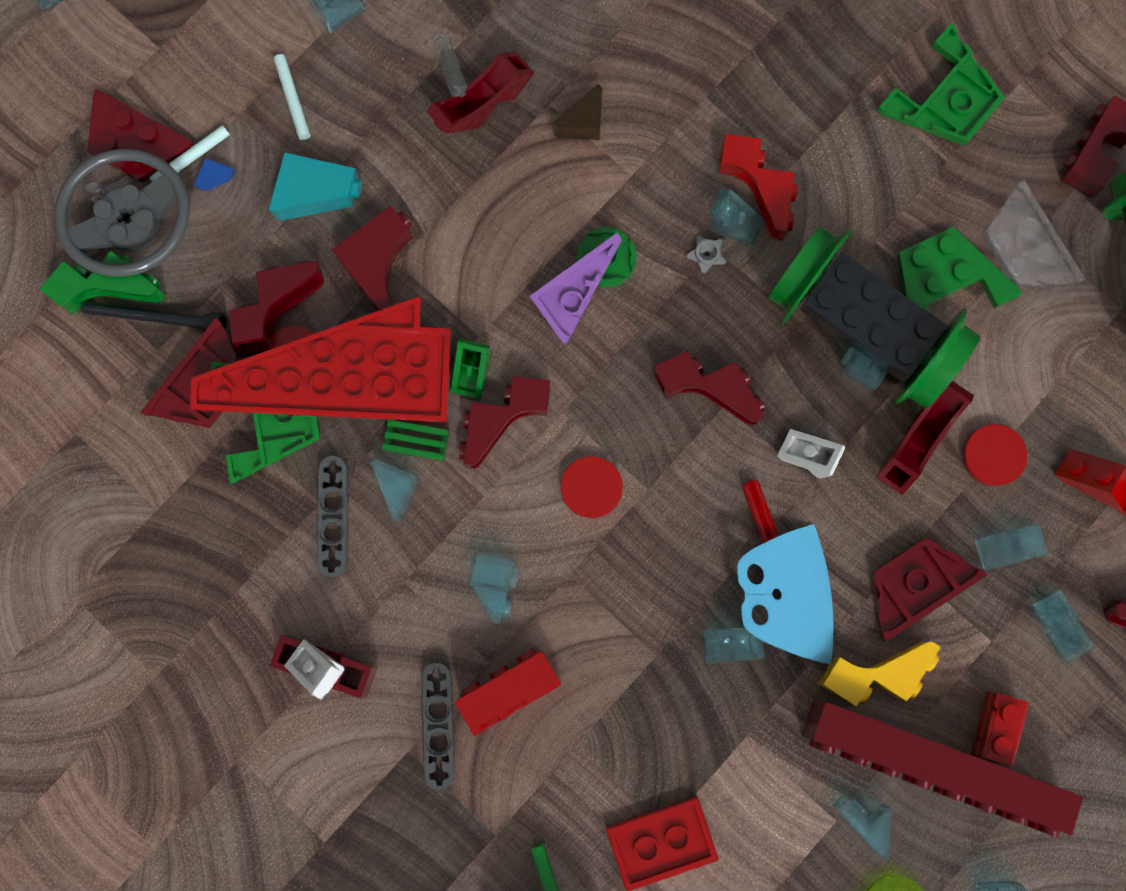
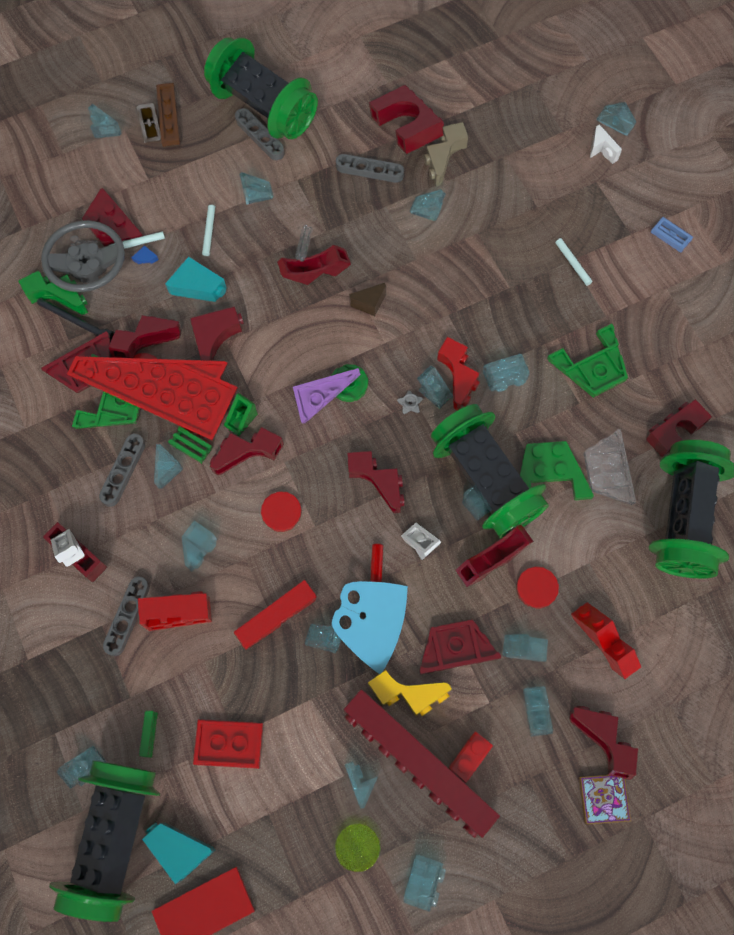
camera: 20 degrees right, 10 degrees down
(650, 640) = (275, 614): none -> red slope
(828, 156) = (506, 373): none -> clear light blue brick

